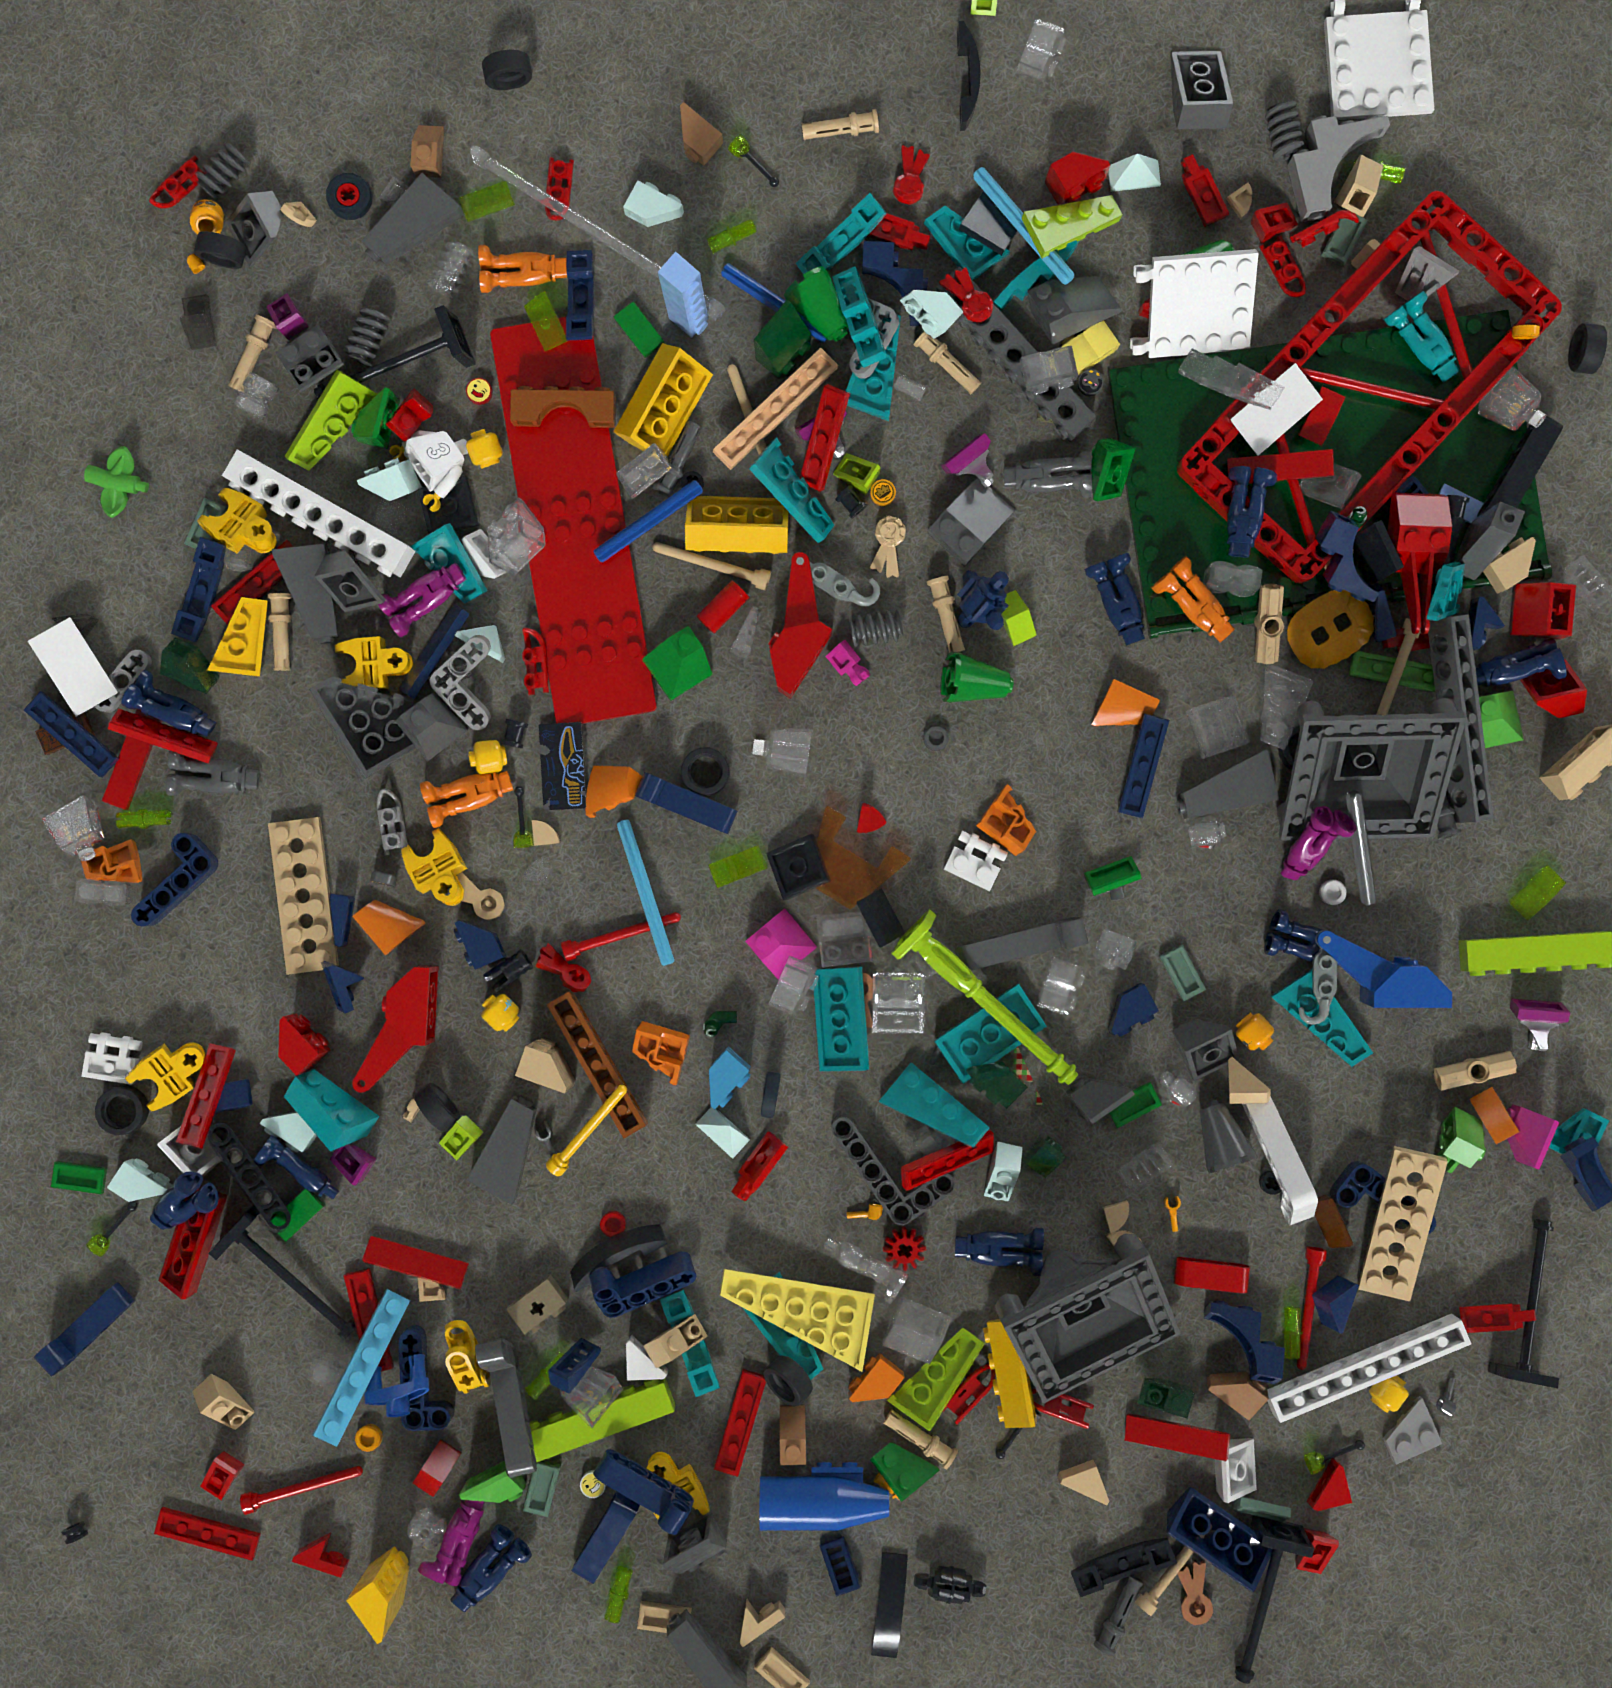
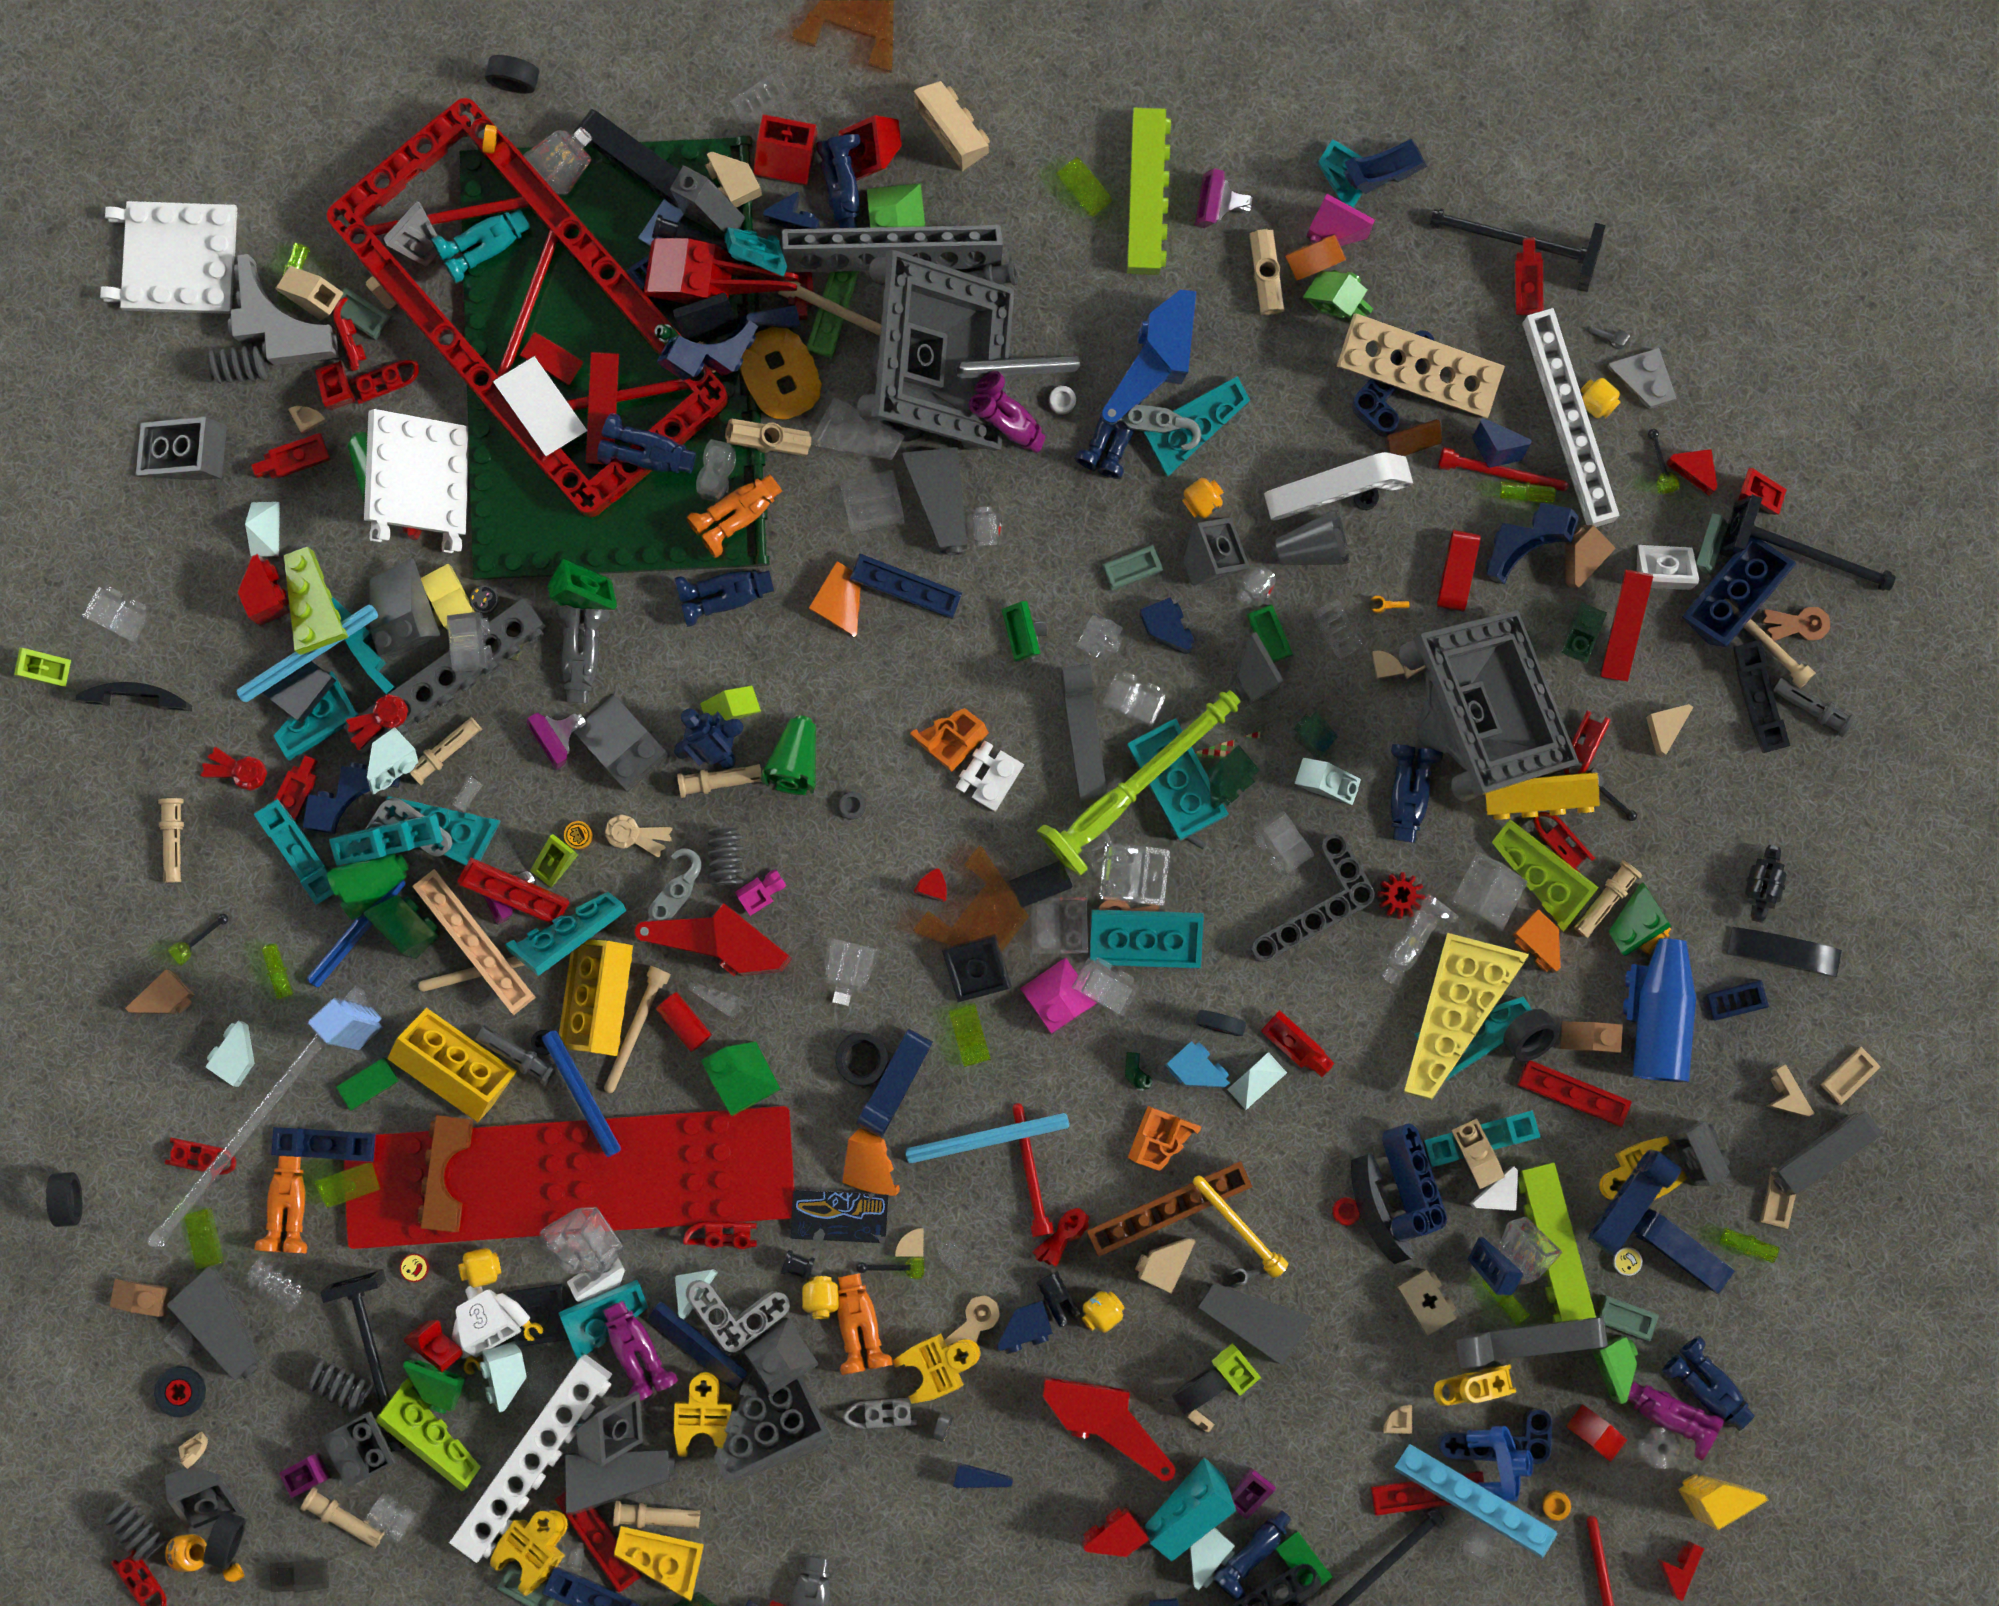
camera: 85 degrees left, 5 degrees down
(287, 887) = (940, 1536): tan plate -> none
(337, 980) = (1051, 1488): dark blue slope -> none
(387, 925) = (994, 1428): orange slope -> none
(415, 1262) = (1368, 1433): red tile -> none
(644, 470) = (524, 1092): clear slope -> none
(851, 501) = (584, 870): black bush -> none
(874, 1212) = (1359, 924): light orange hand -> none
(930, 1104) = (1247, 851): teal wing -> none
(945, 1161) = (1308, 838): red tile -> none
(1231, 380) = (503, 451): clear slope -> none
(1244, 1086) = (1260, 514): tan slope -> none
(1332, 489) = (632, 356): clear plate -> none

